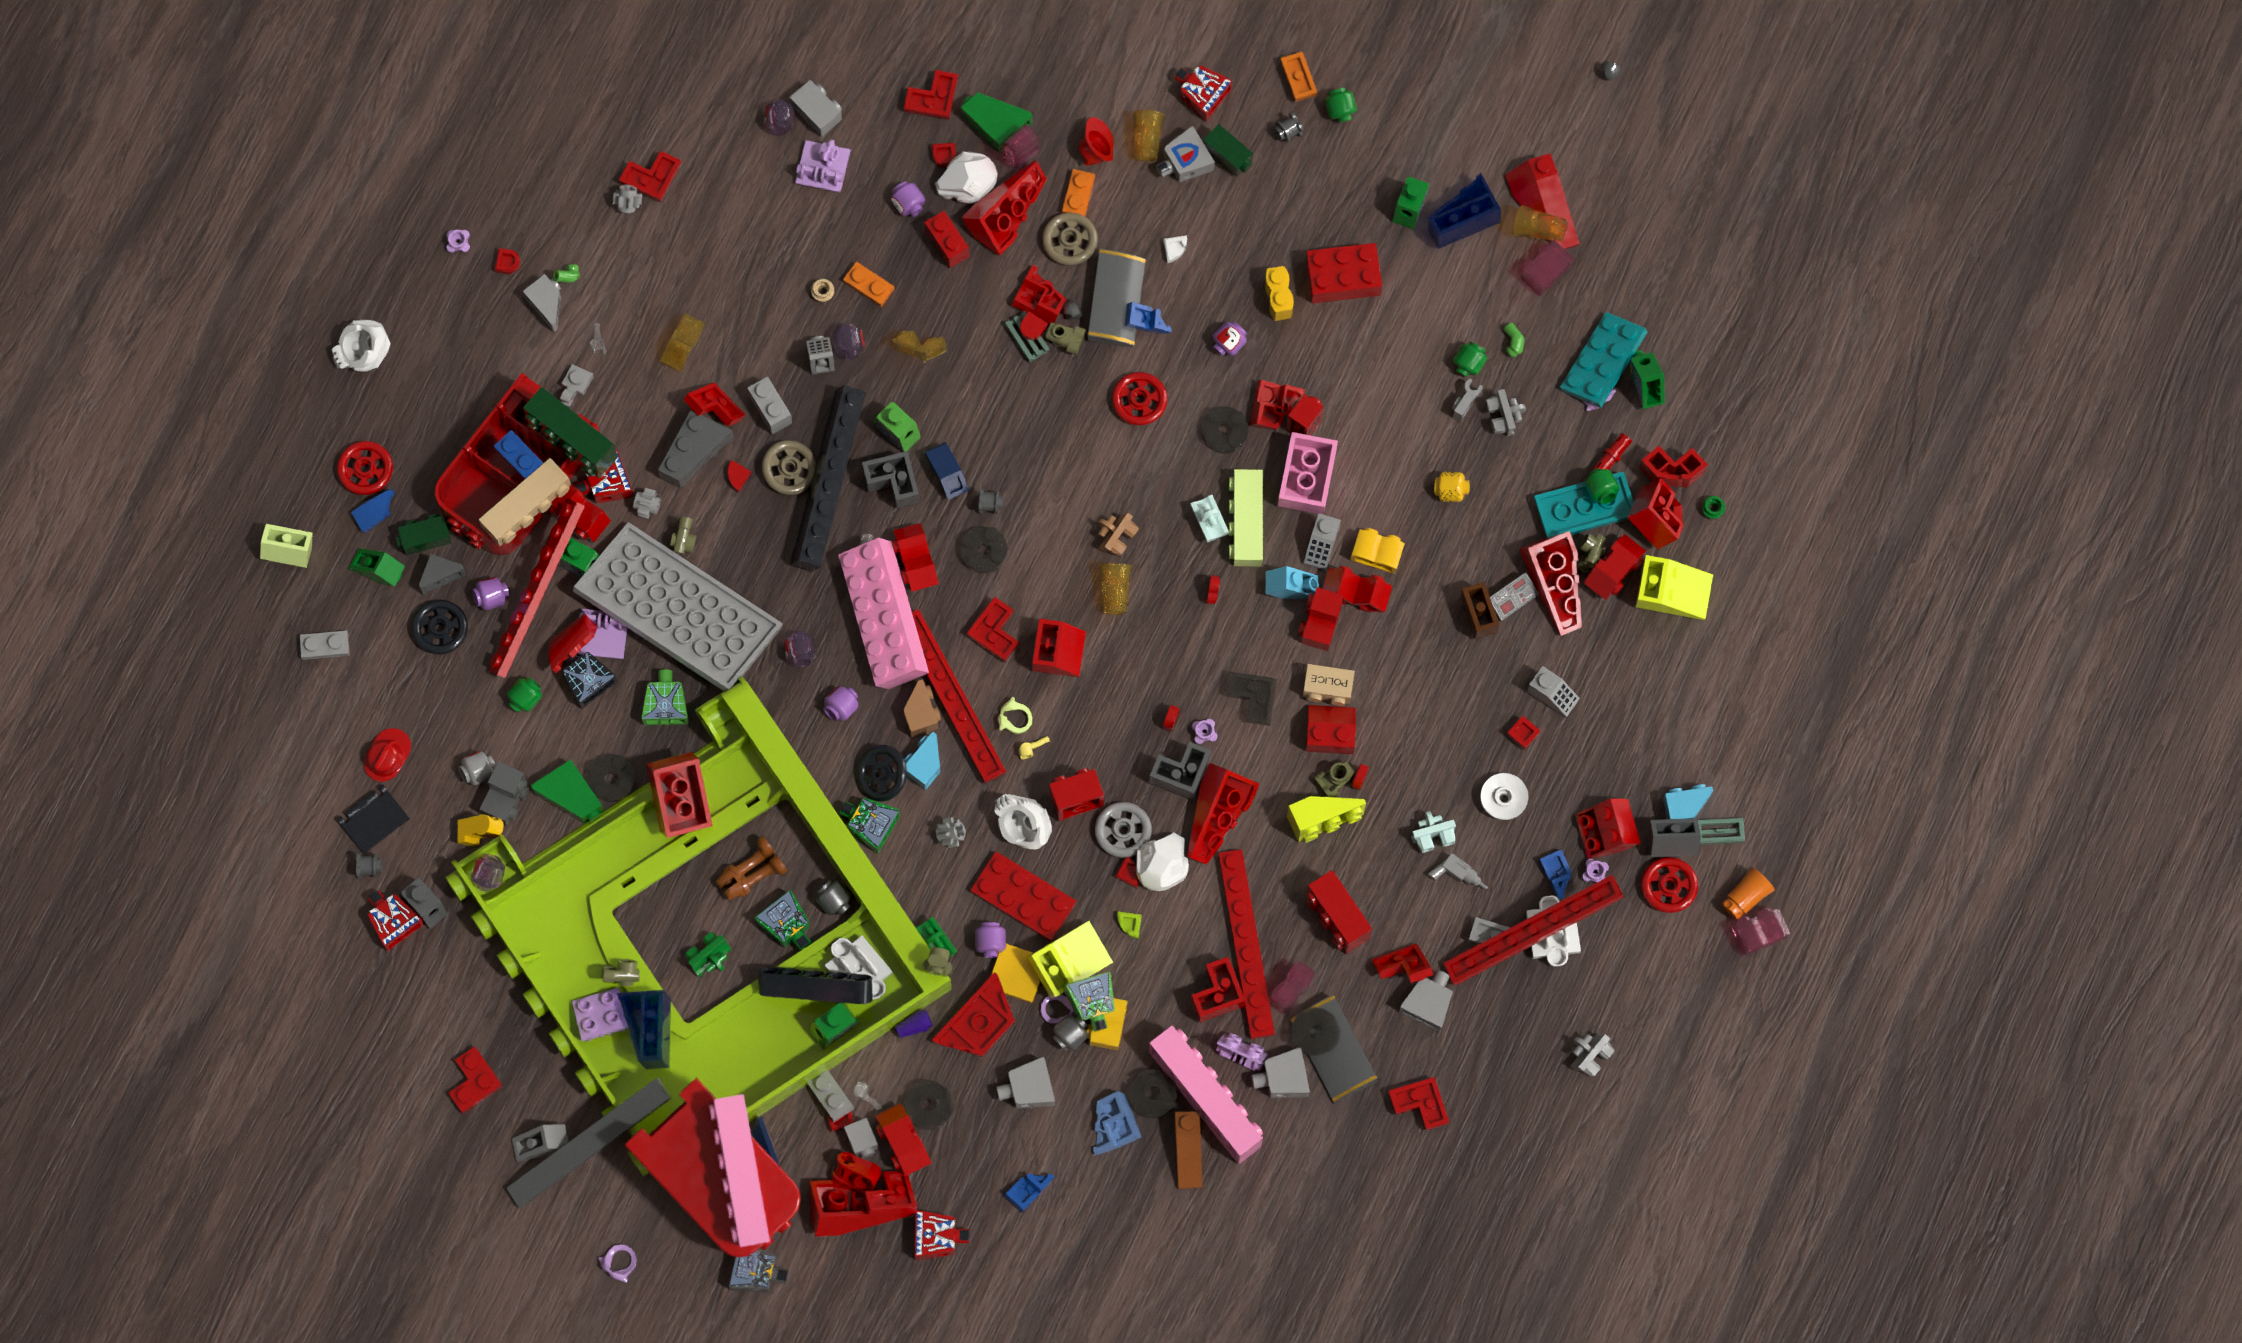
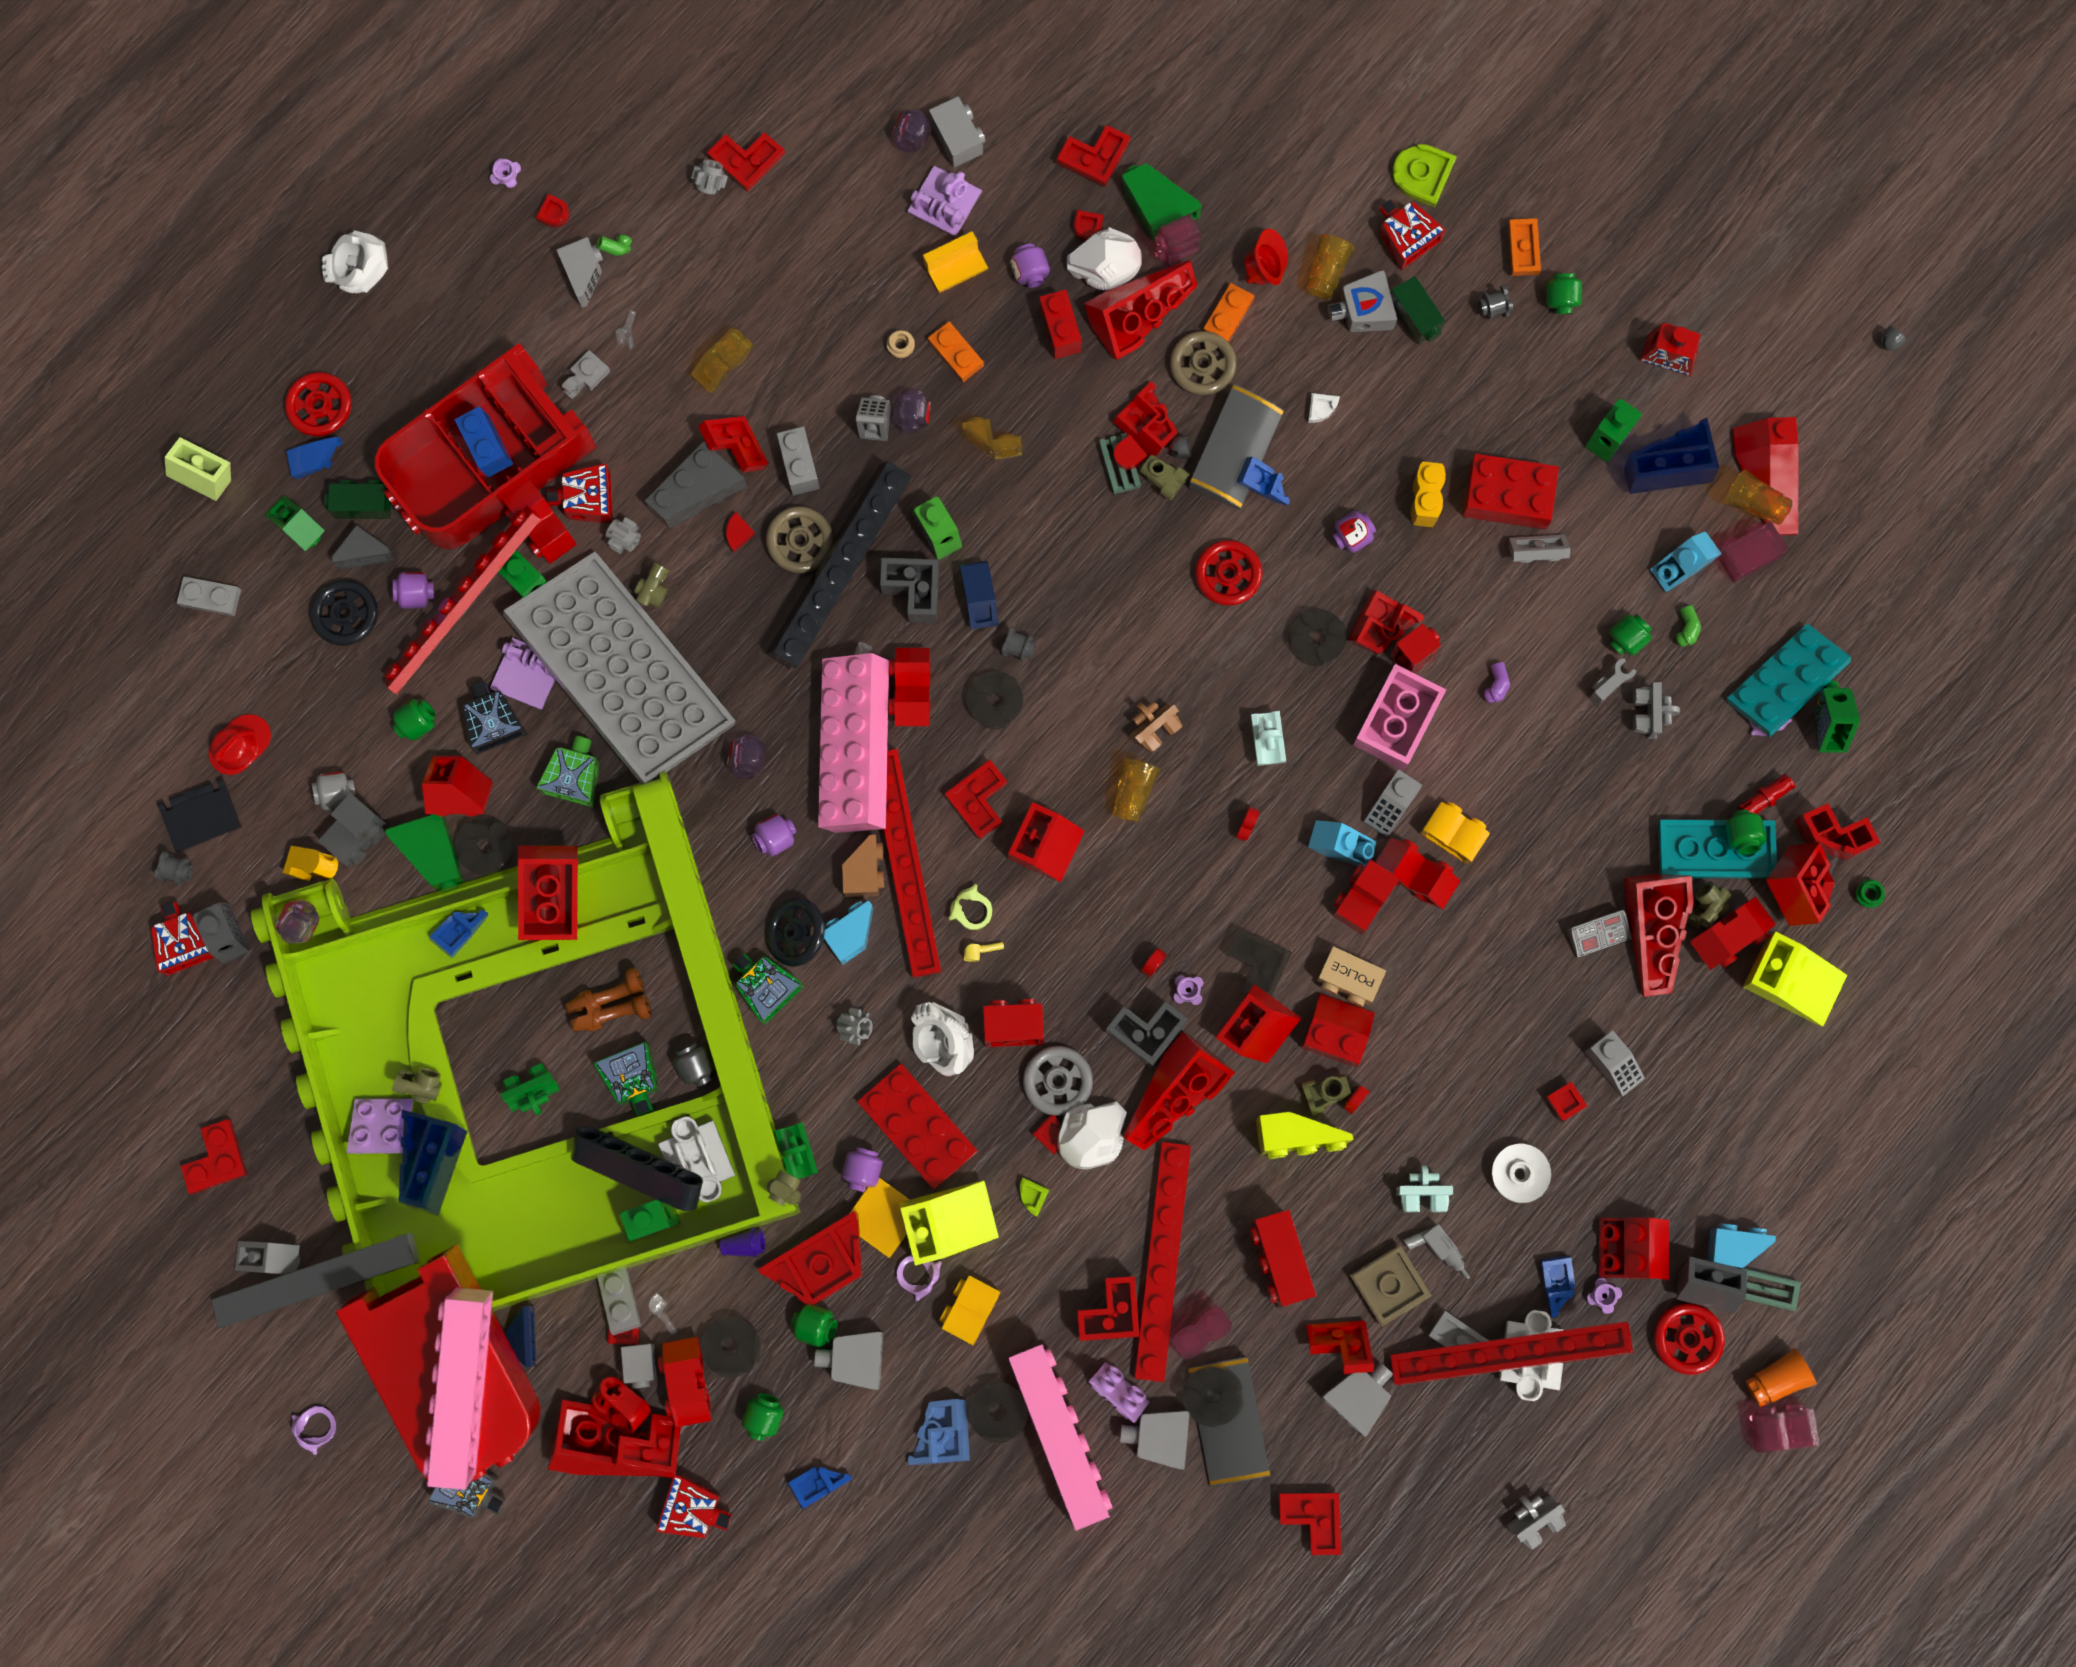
camera: 20 degrees right, 5 degrees up
(525, 502) = (471, 496): tan brick -> none
(569, 433) = (545, 429): dark green brick -> none
(570, 641) = (483, 673): red slope -> none
(577, 736) = (455, 787): none -> red slope
(611, 849) = (457, 931): none -> blue slope
(846, 213) = (954, 262): none -> yellow panel
(970, 1149) = (762, 1416): none -> green head
(989, 1069) = (814, 1325): none -> green head
(1070, 1032) = (922, 1310): flat silver head -> none
(1091, 999) = (957, 1281): torso -> none
(1188, 1149) = (1020, 1495): dark orange slope -> none
(1200, 39) = (1422, 172): none -> lime tile
(1247, 517) = (1313, 749): yellowish green brick -> none
(1267, 741) = (1257, 1026): none -> red slope
(1378, 311) = (1539, 548): none -> light grey plate
(1380, 426) = (1500, 685): none -> medium lavender arm
(1428, 911) = (1390, 1285): none -> dark tan plate
(1438, 125) = (1671, 348): none -> red torso
(1451, 486) = (1565, 781): yellow head -> none
(1479, 610) = (1556, 939): reddish brown brick -> none
(1497, 289) = (1685, 561): none -> medium azure slope

